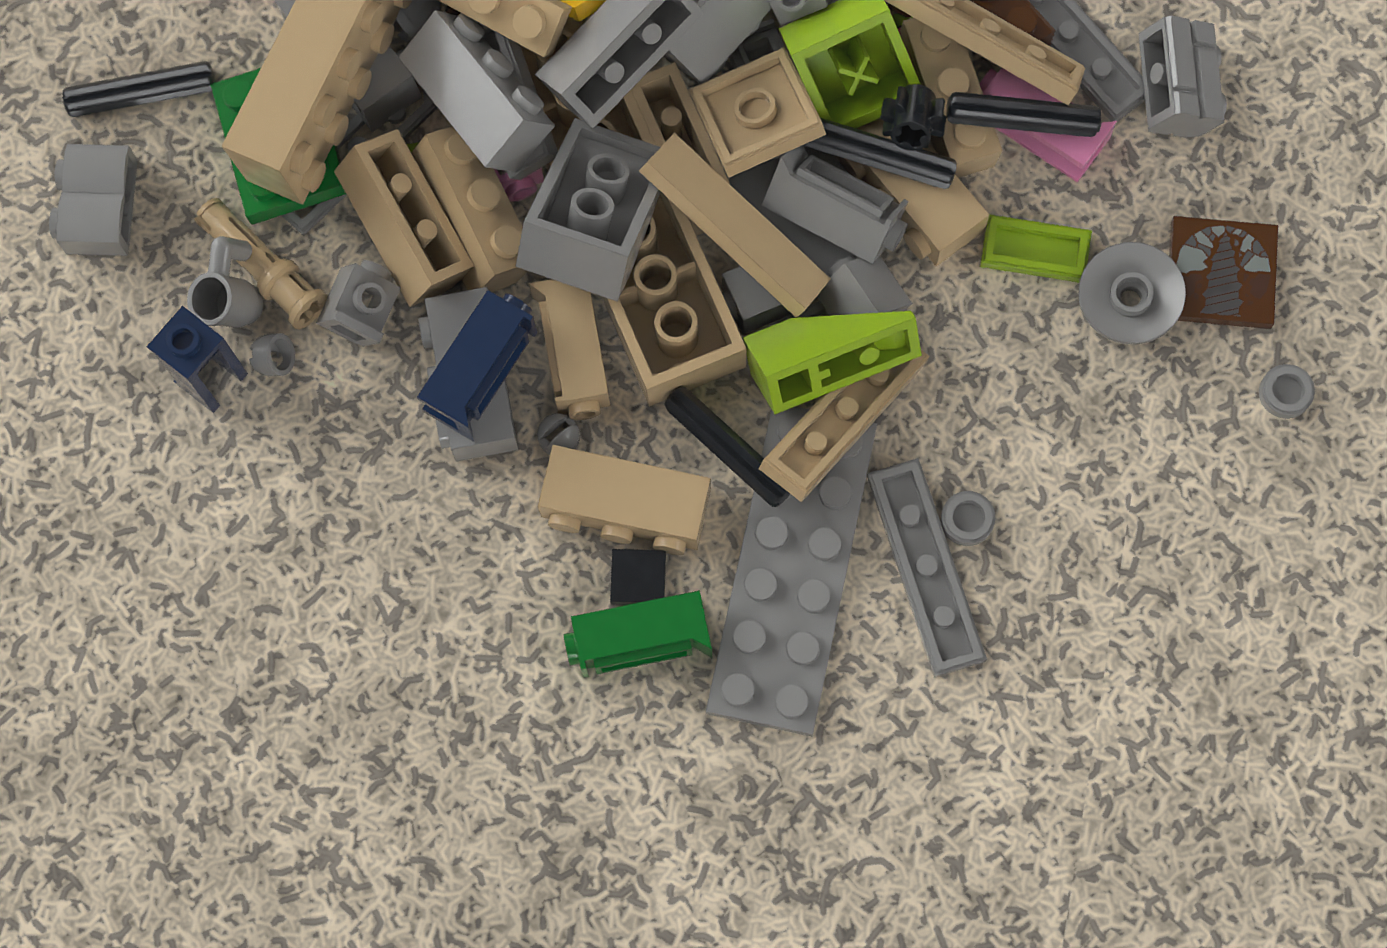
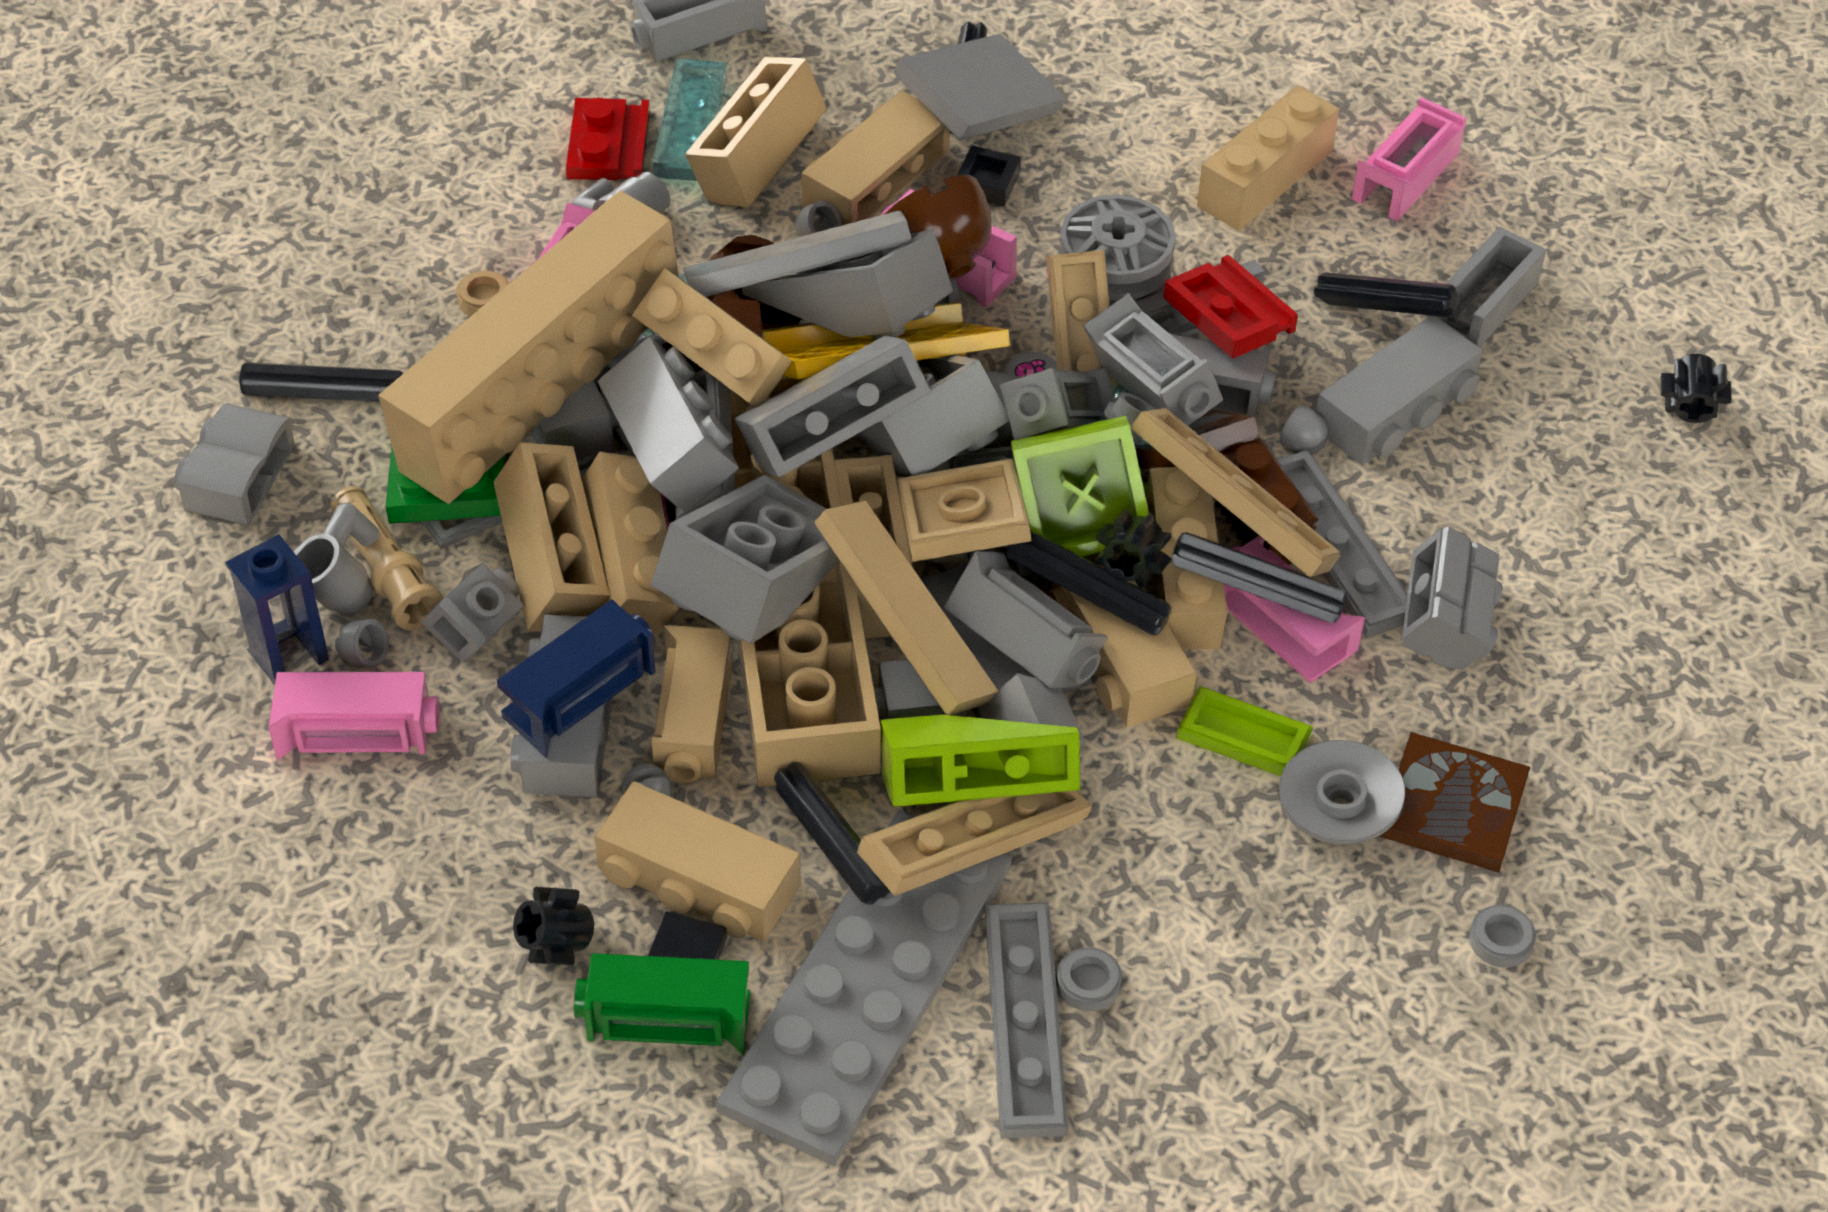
camera: 10 degrees right, 25 degrees down
(291, 429) = (352, 712): none -> bright pink window
(527, 590) = (553, 926): none -> black gear

